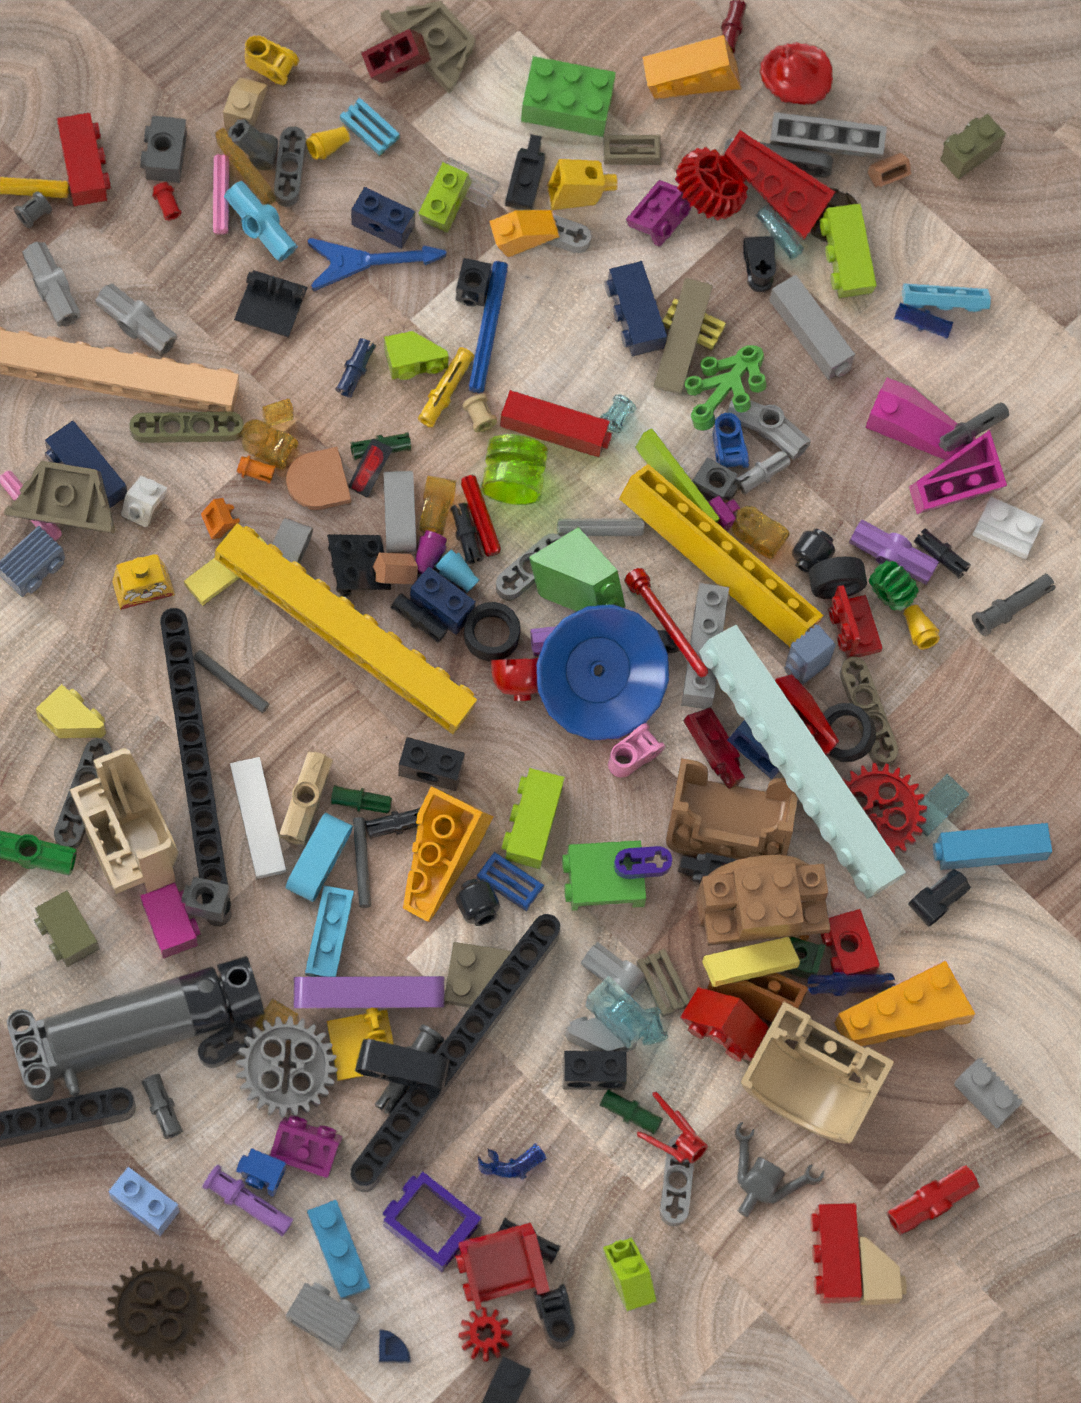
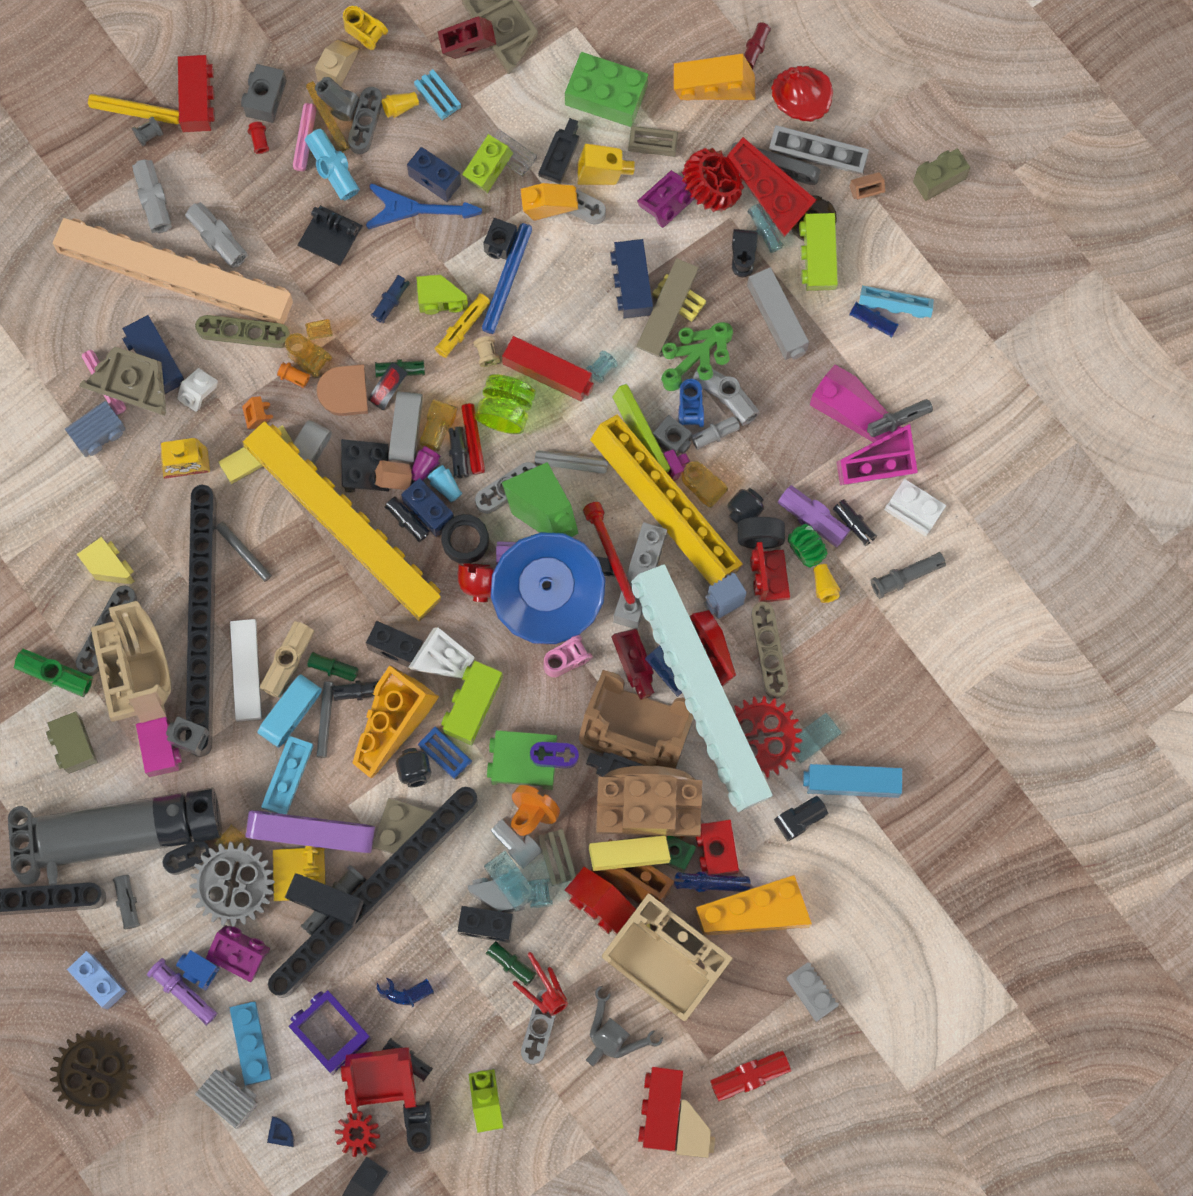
camera: 15 degrees right, 5 degrees up
(489, 768) = (441, 656): none -> white wing
(629, 927) = (533, 809): none -> orange tile
(869, 731) = (764, 669): black tyre -> none

